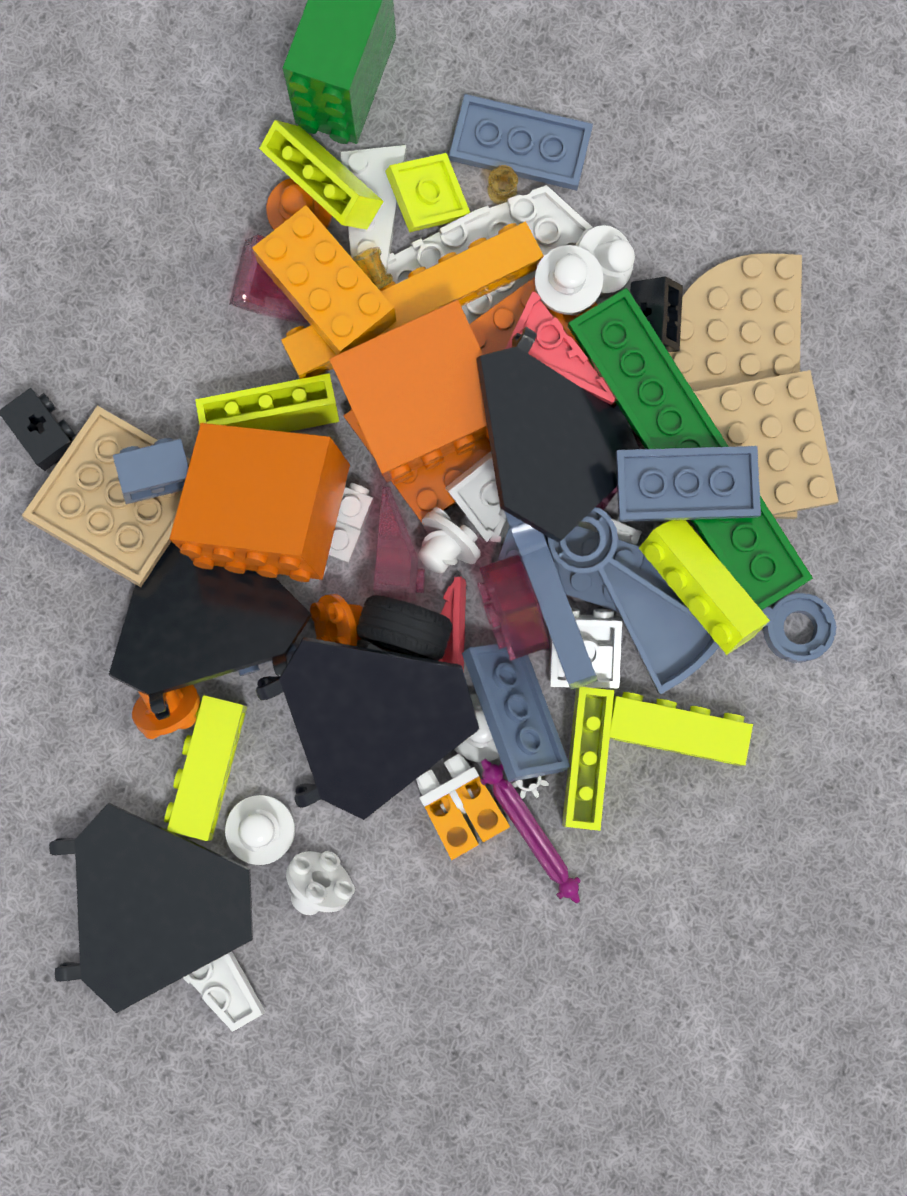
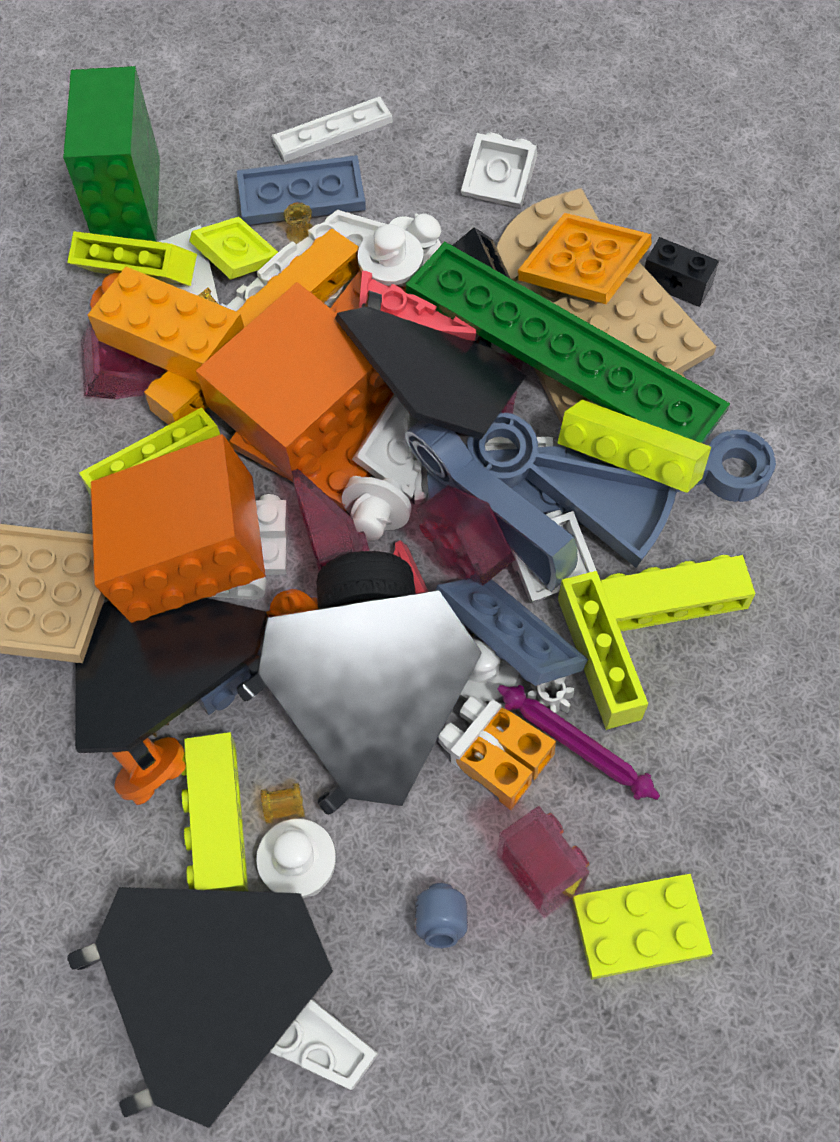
camera: 20 degrees left, 20 degrees down
(151, 470) = (56, 547): sand blue brick -> none
(265, 779) = (282, 803): none -> clear yellow bush
(318, 883) = (380, 885): white plate -> none
(356, 927) = (441, 915): none -> sand blue head
(453, 925) = (543, 860): none -> clear pink brick
(513, 1000) = (641, 926): none -> neon yellow plate
(583, 72) = (332, 129): none -> white tile
(688, 483) = (576, 364): sand blue plate -> none
(728, 201) = (499, 169): none -> white plate
(758, 355) = (585, 258): none -> light orange plate
(849, 398) = (681, 271): none -> black brick

